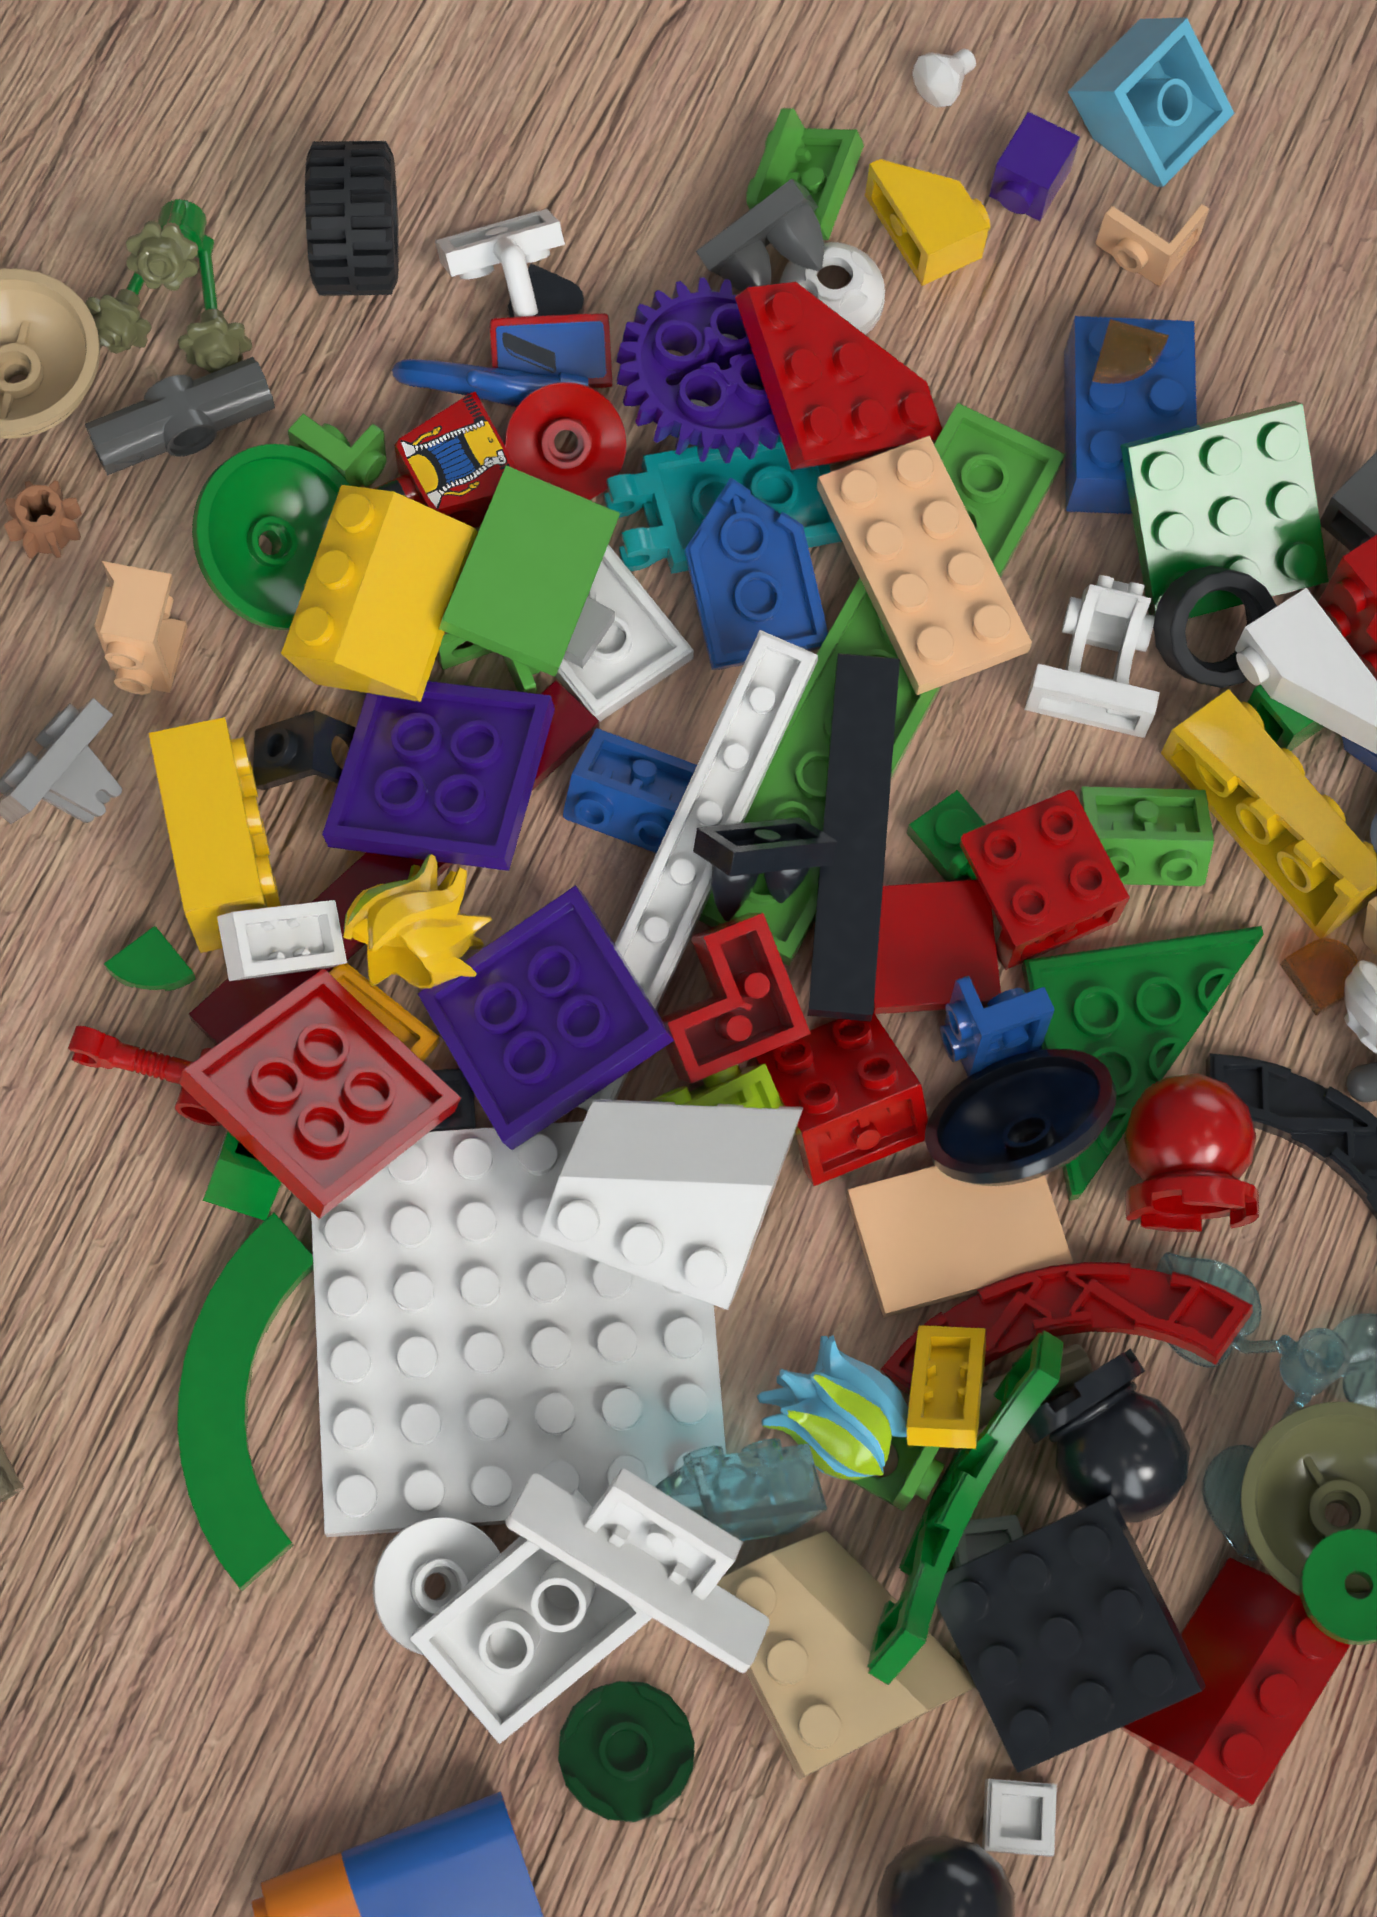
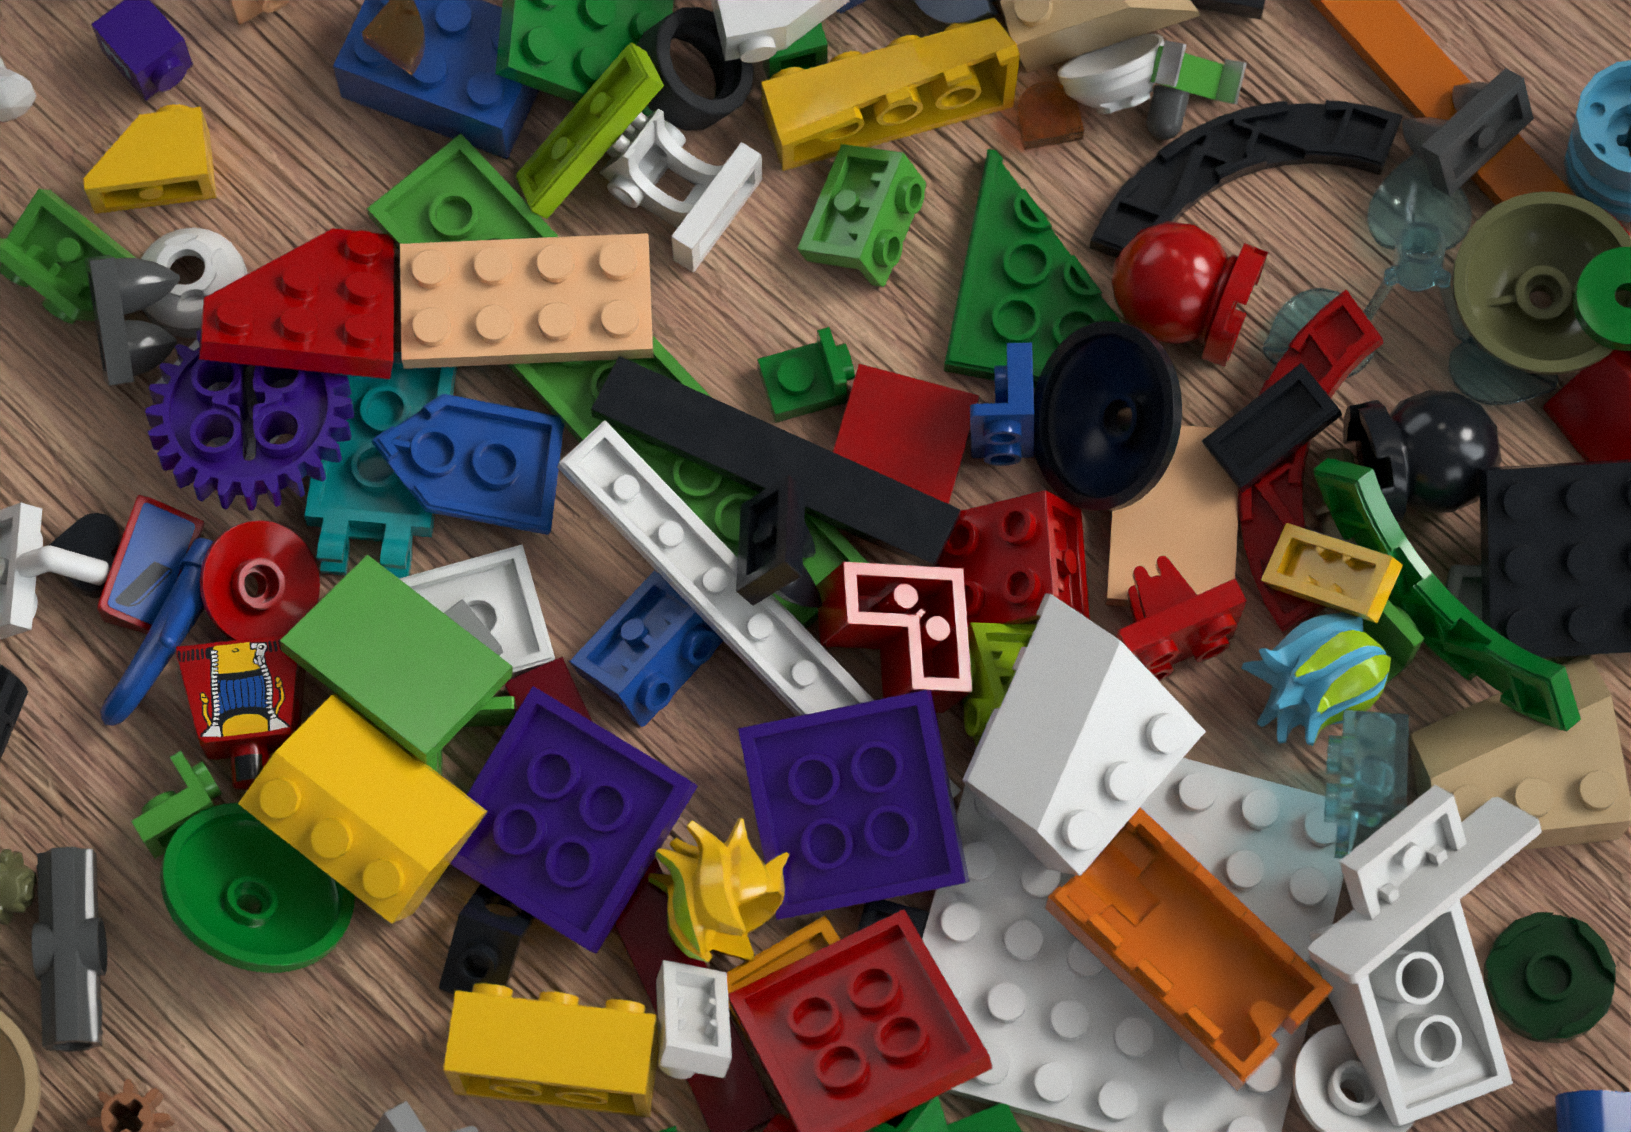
camera: 65 degrees left, 0 degrees up
(137, 629) = (303, 1056): light nougat window -> none
(510, 1371) = (1189, 948): none -> orange piece
(834, 1251) = (1176, 621): none -> red plate
(1044, 877) = (878, 310): red bracket -> none
(1079, 1283) = (1272, 427): none -> black tile
(1110, 553) = (589, 130): none -> lime tile

